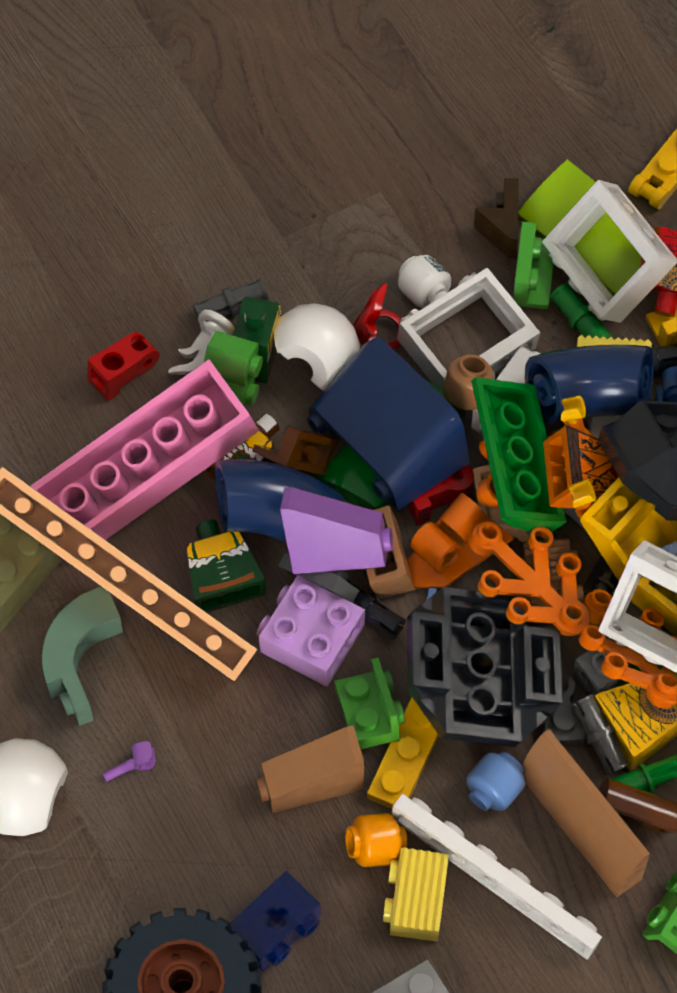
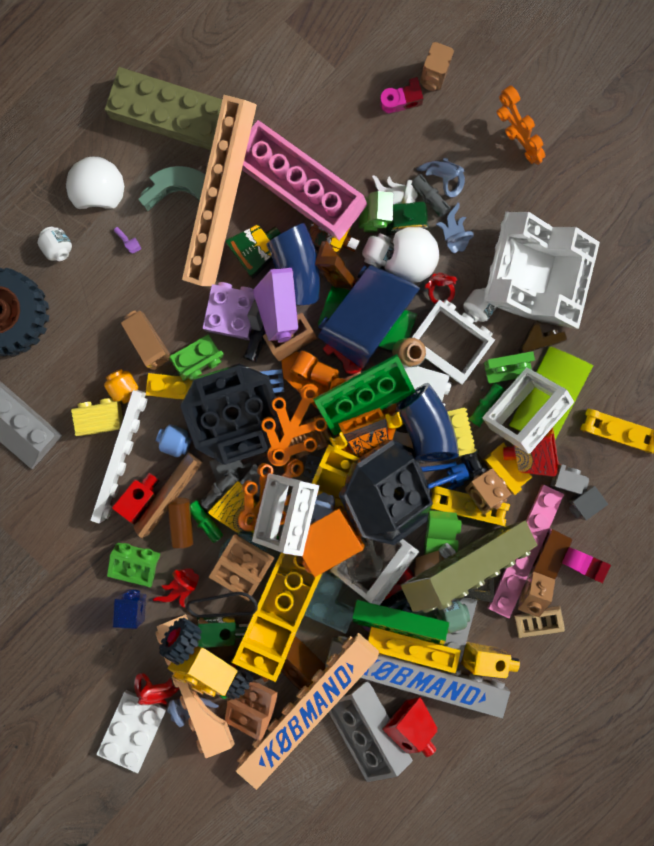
camera: 75 degrees right, 25 degrees up
(42, 231) = (436, 66): none -> medium nougat brick
(65, 305) = (403, 98): none -> leg
(95, 875) = (54, 244): none -> white head
(121, 364) = (368, 147): red leg -> none
(200, 267) = (446, 171): none -> sand blue piece
(218, 149) = (520, 127): none -> orange plant
(280, 901) = (49, 338): clear blue brick -> none
(290, 393) = (378, 250): none -> white head
(299, 288) = (454, 234): none -> sand blue piece
(402, 184) = (541, 270): none -> white slope
(580, 869) = (129, 506): none -> red torso

